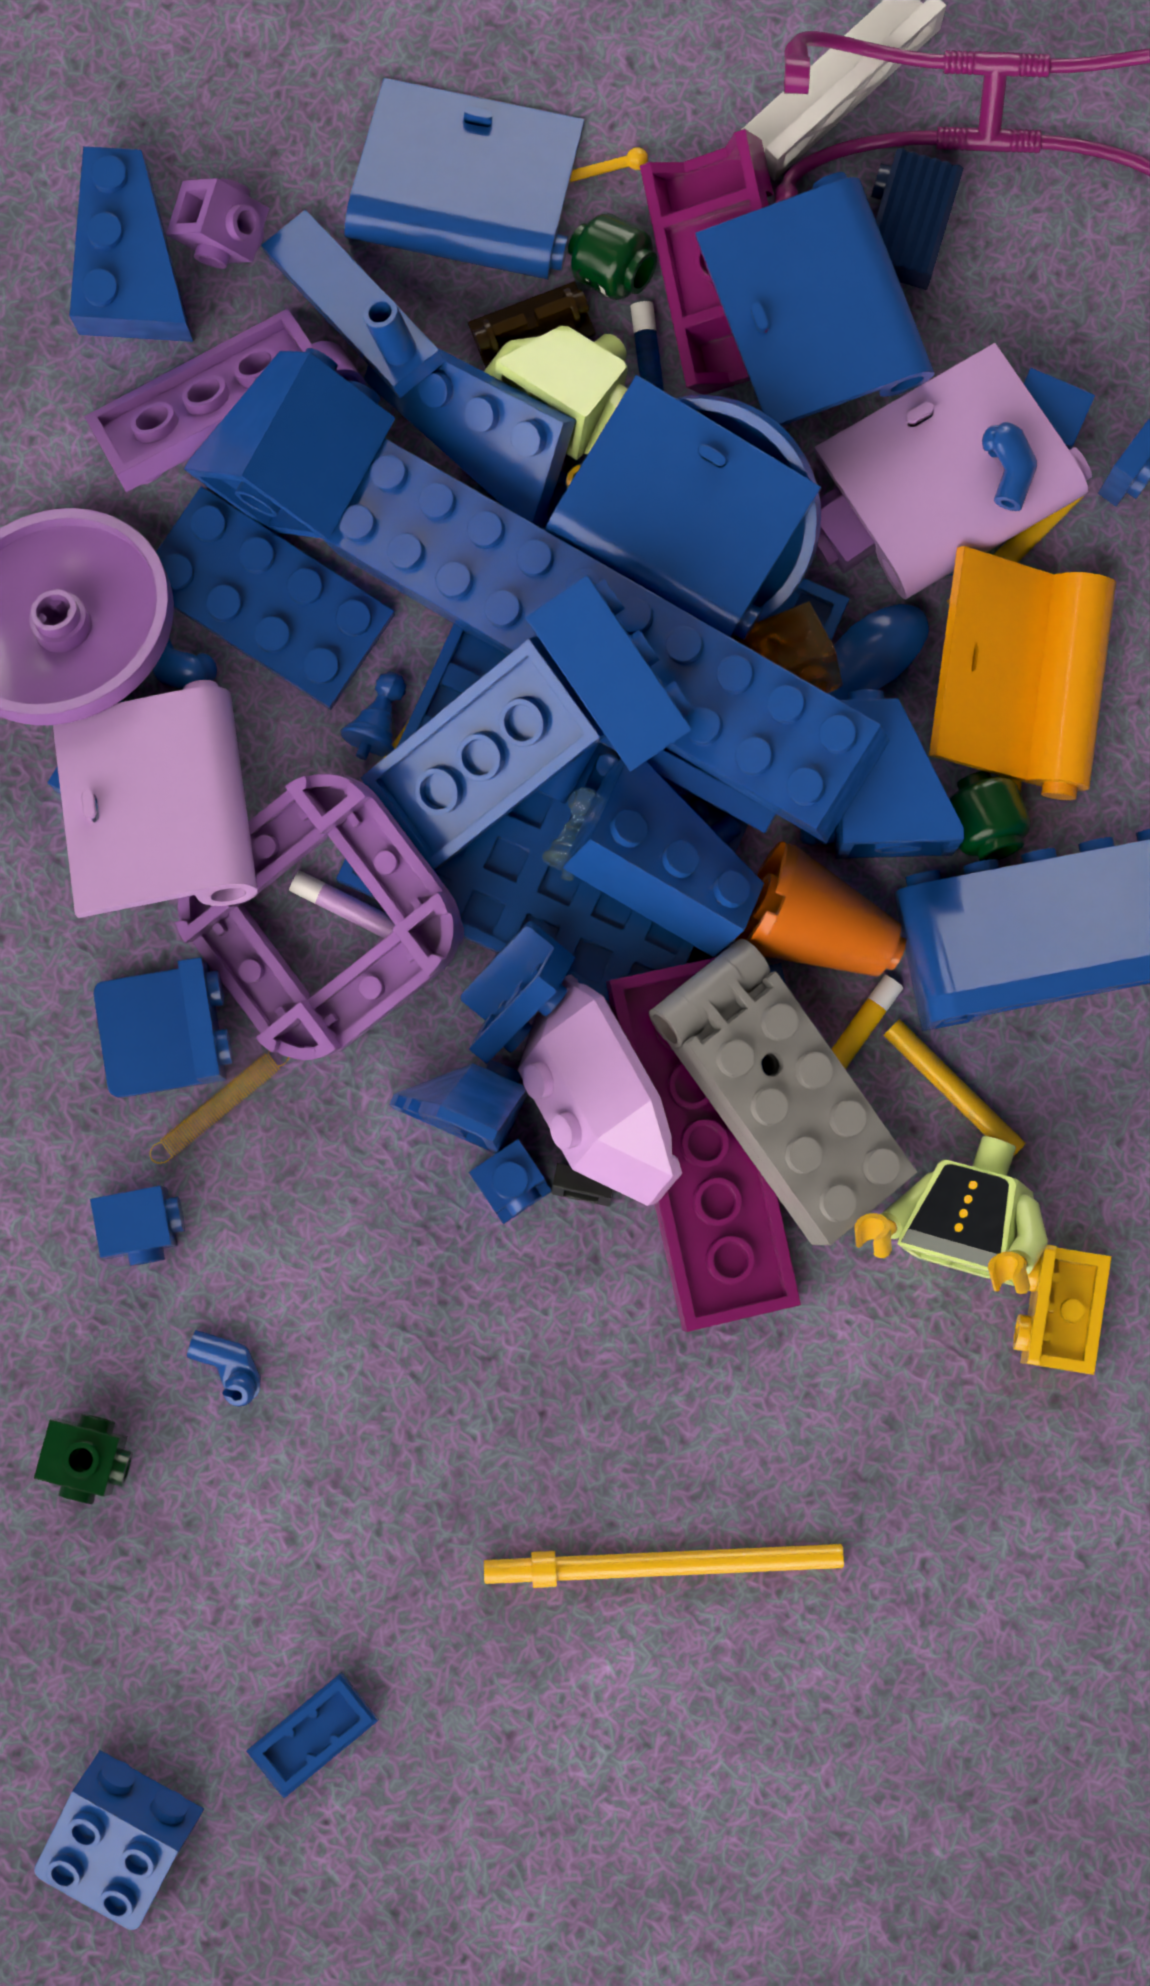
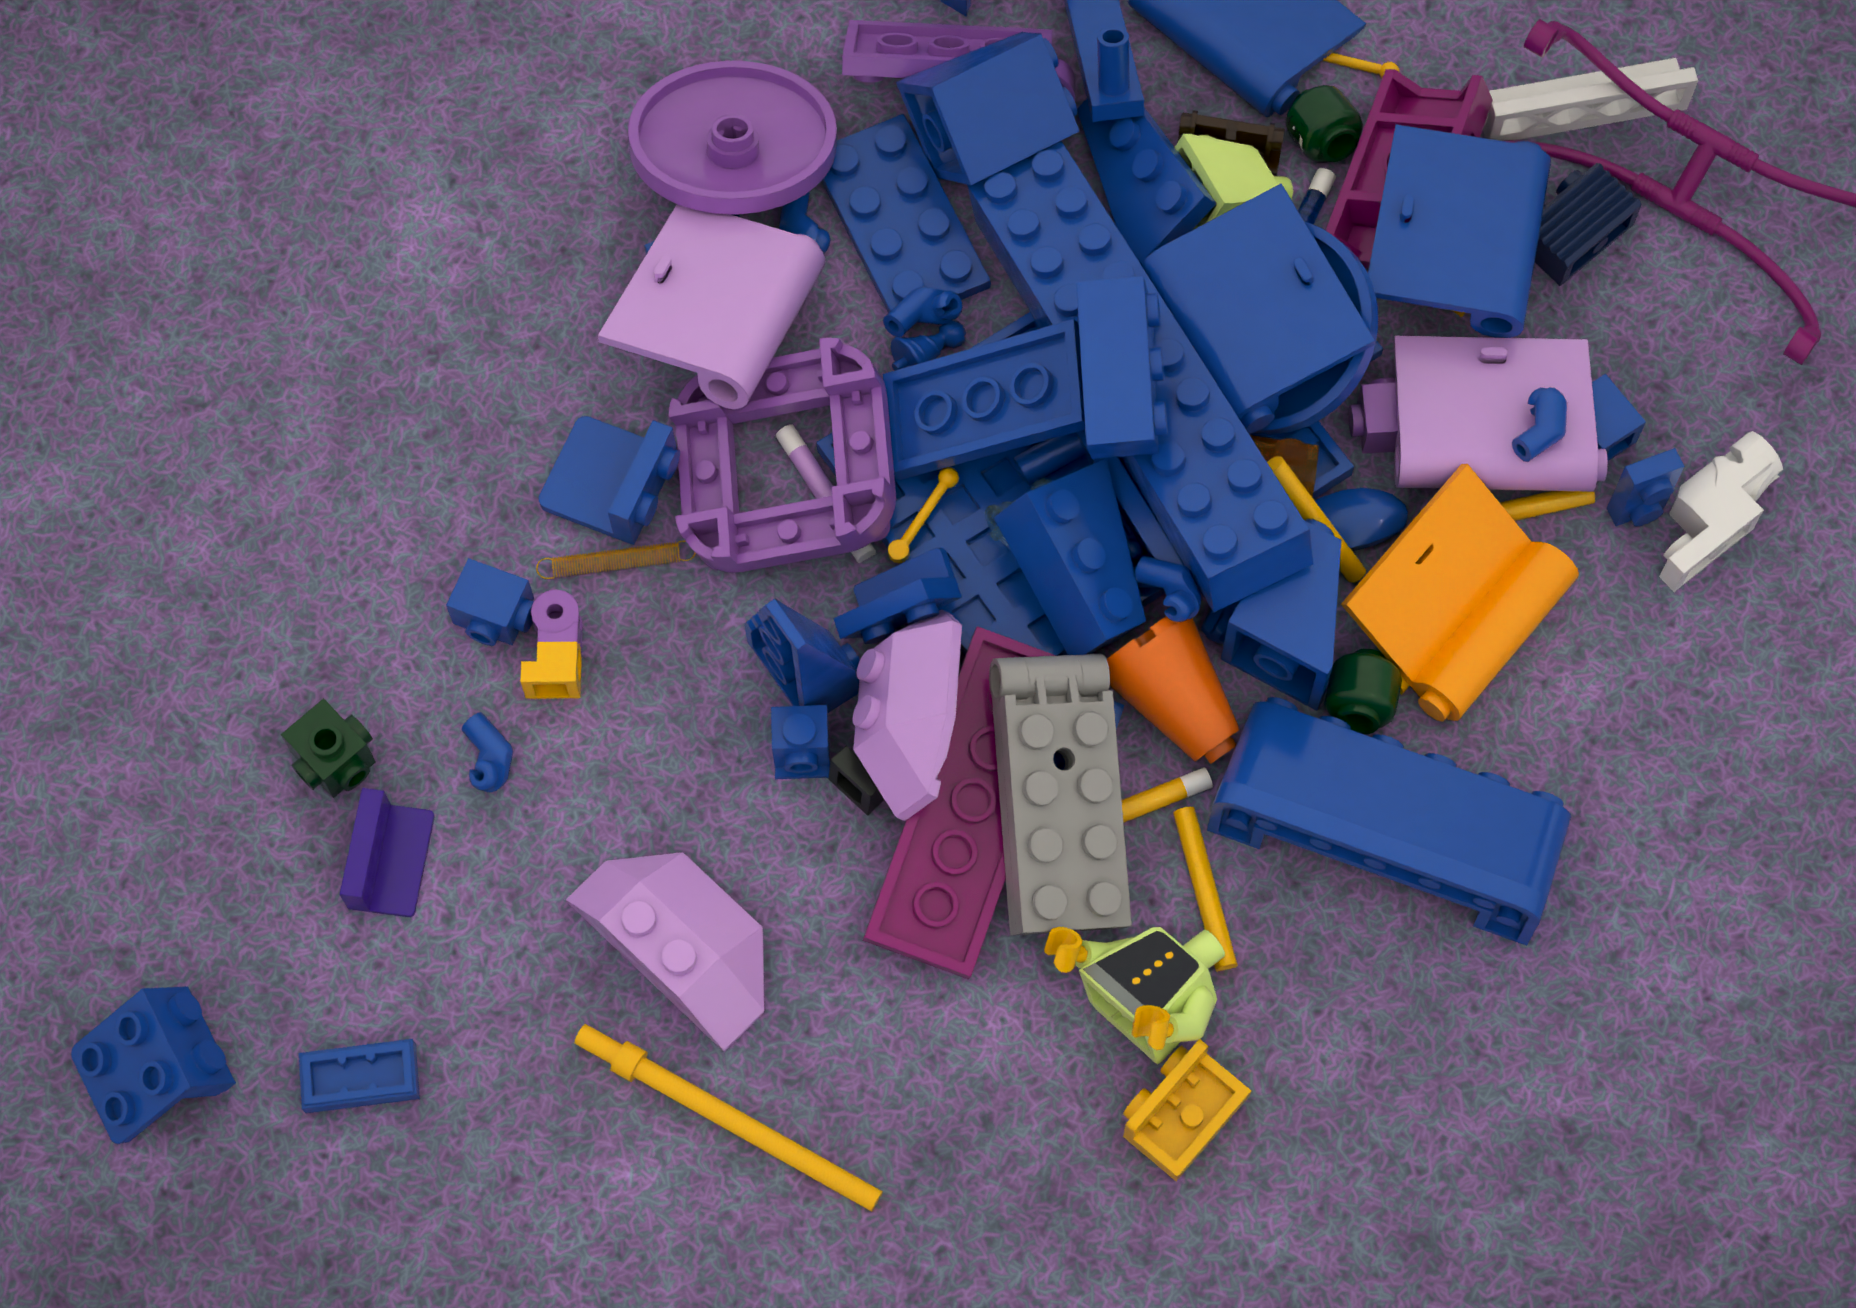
camera: 30 degrees right, 15 degrees down
(200, 1518) = (386, 856): none -> dark purple panel
(227, 1226) = (558, 648): none -> leg
(351, 681) = (923, 306): none -> blue arm
(483, 940) = (899, 549): none -> yellow hinge
(515, 1429) = (681, 938): none -> lavender wedge
(774, 832) = (1177, 583): none -> blue arm
(847, 679) = (1307, 507): none -> yellow bar

